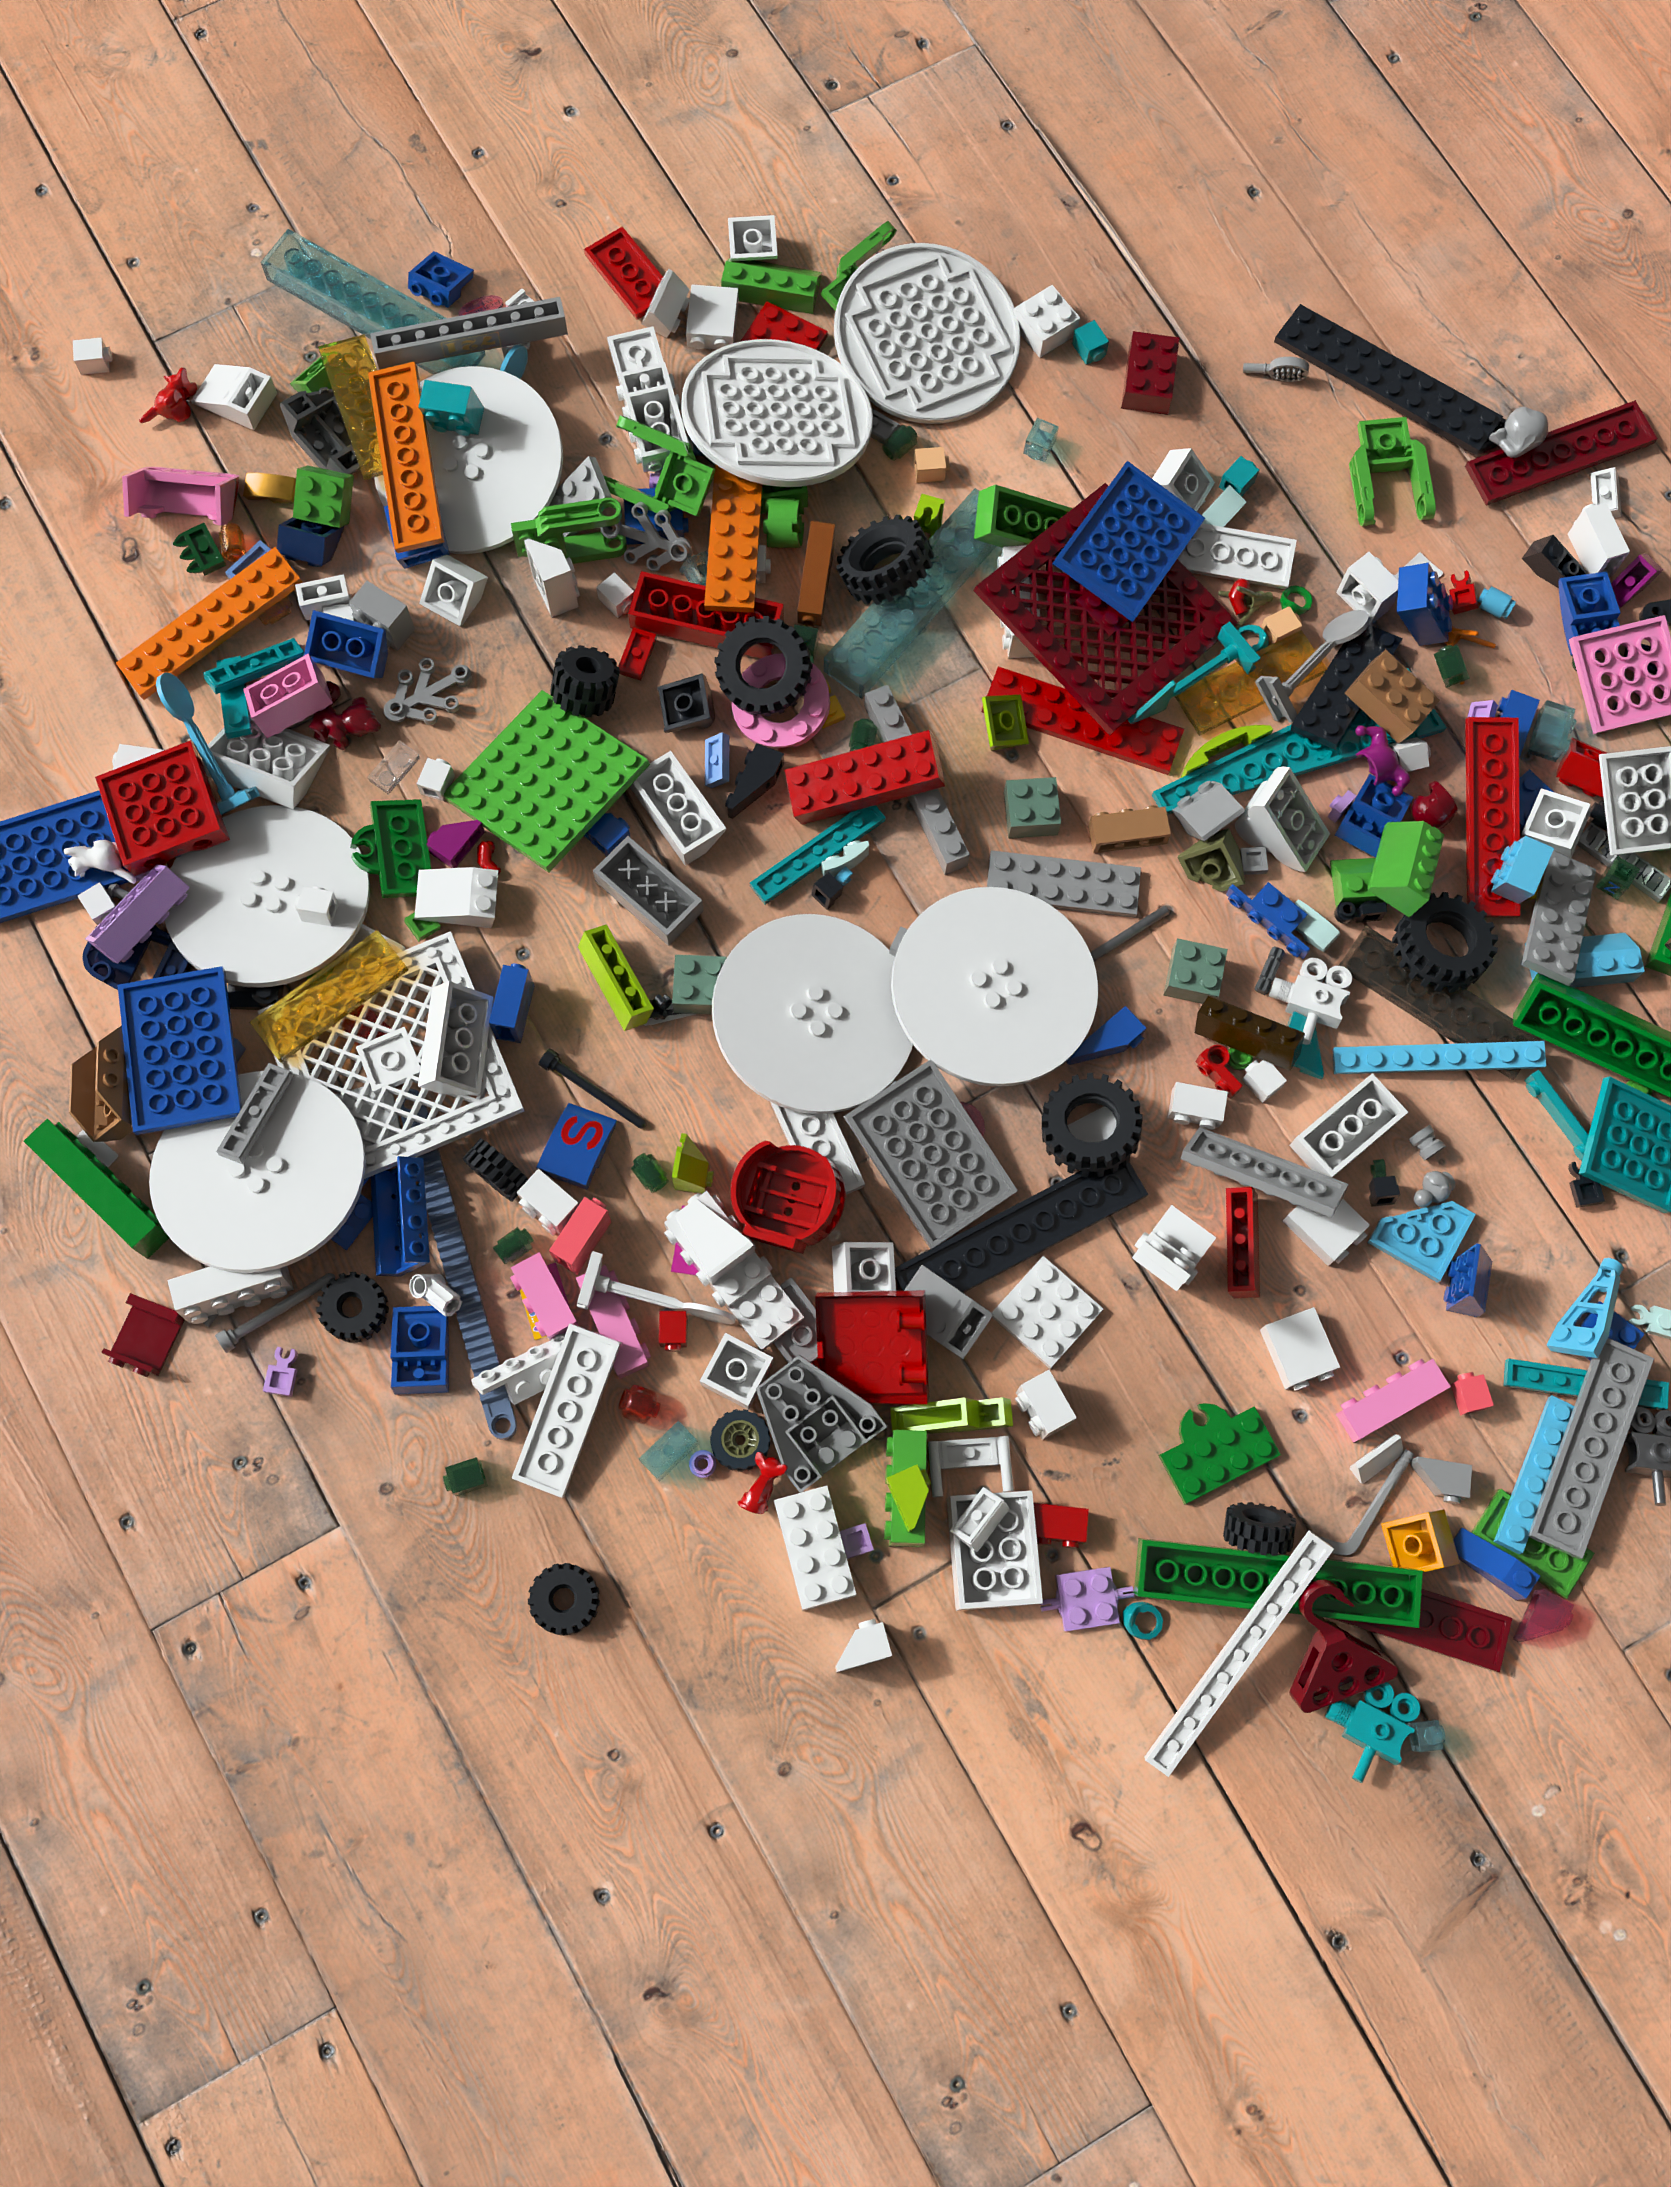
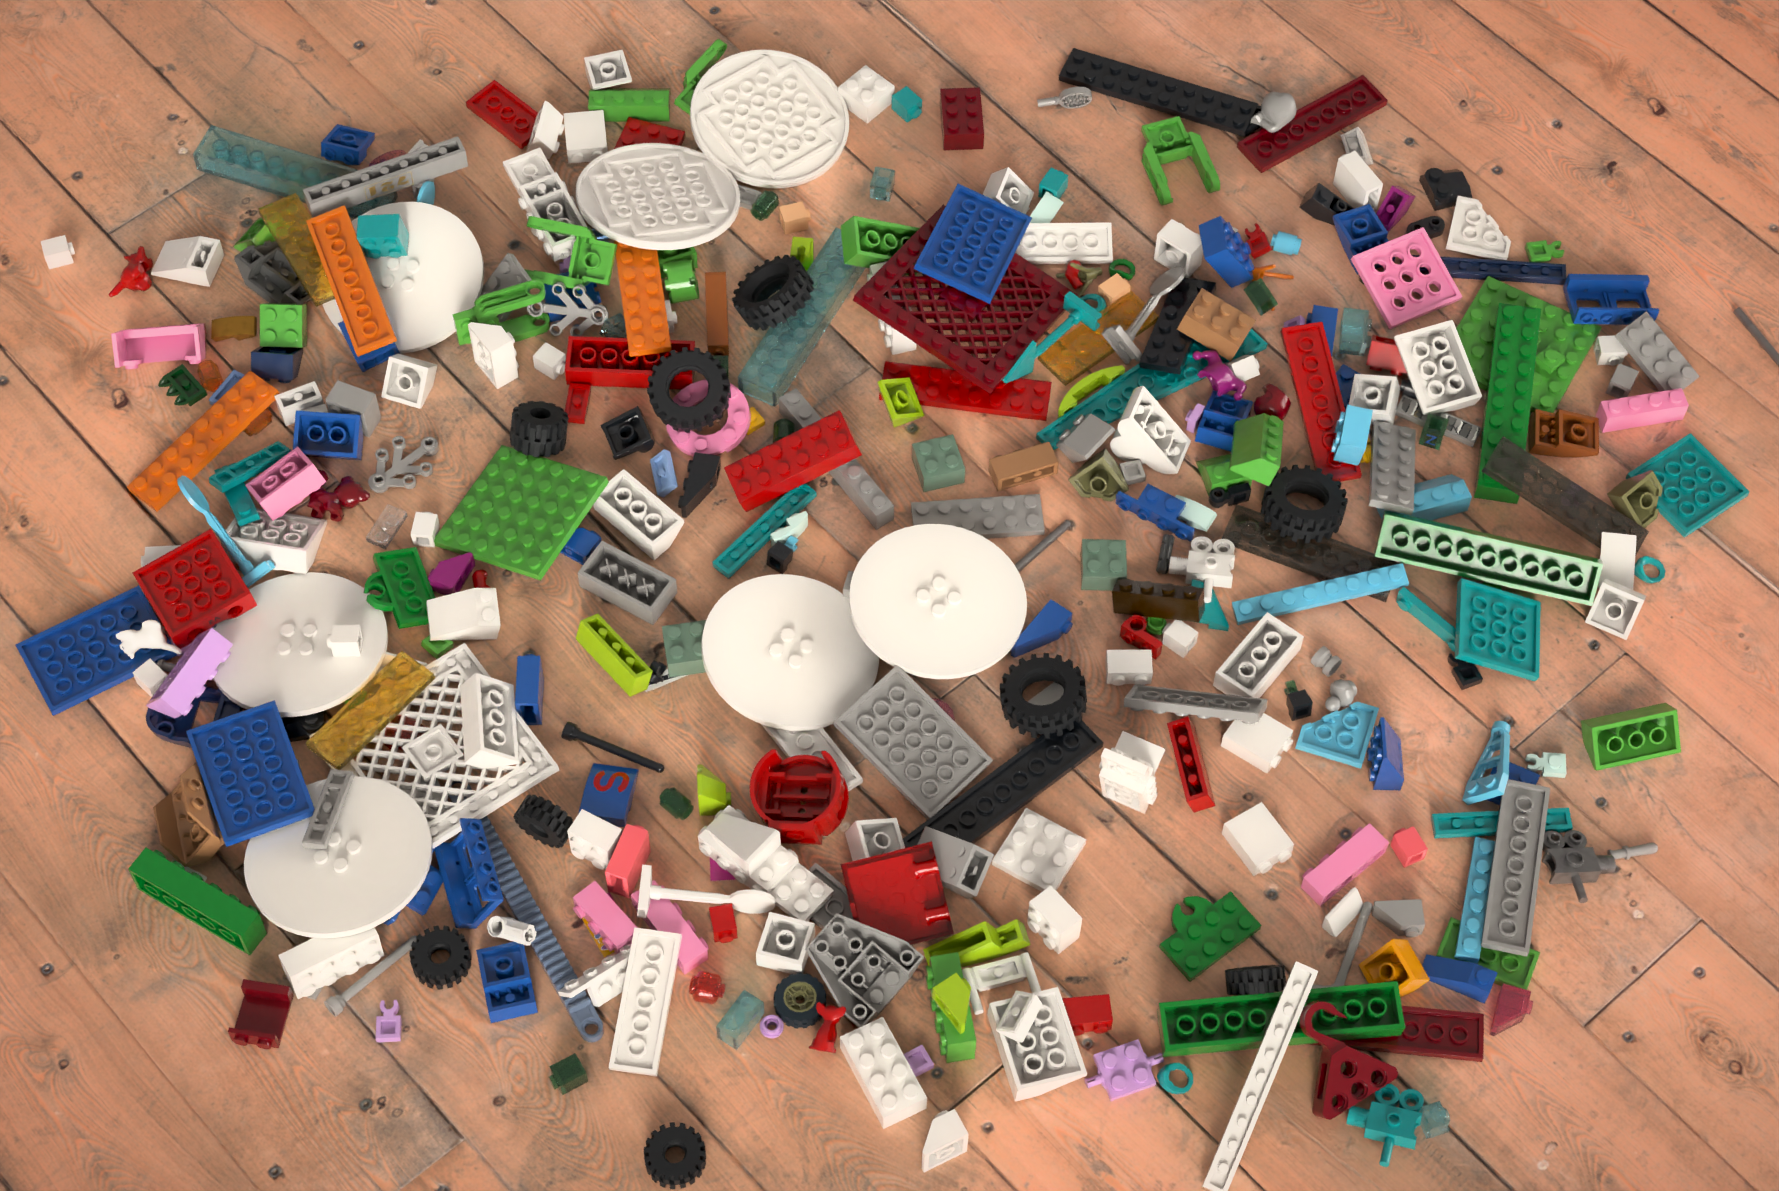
camera: 10 degrees left, 15 degrees down
(513, 1245) = (570, 882): clear green brick -> none

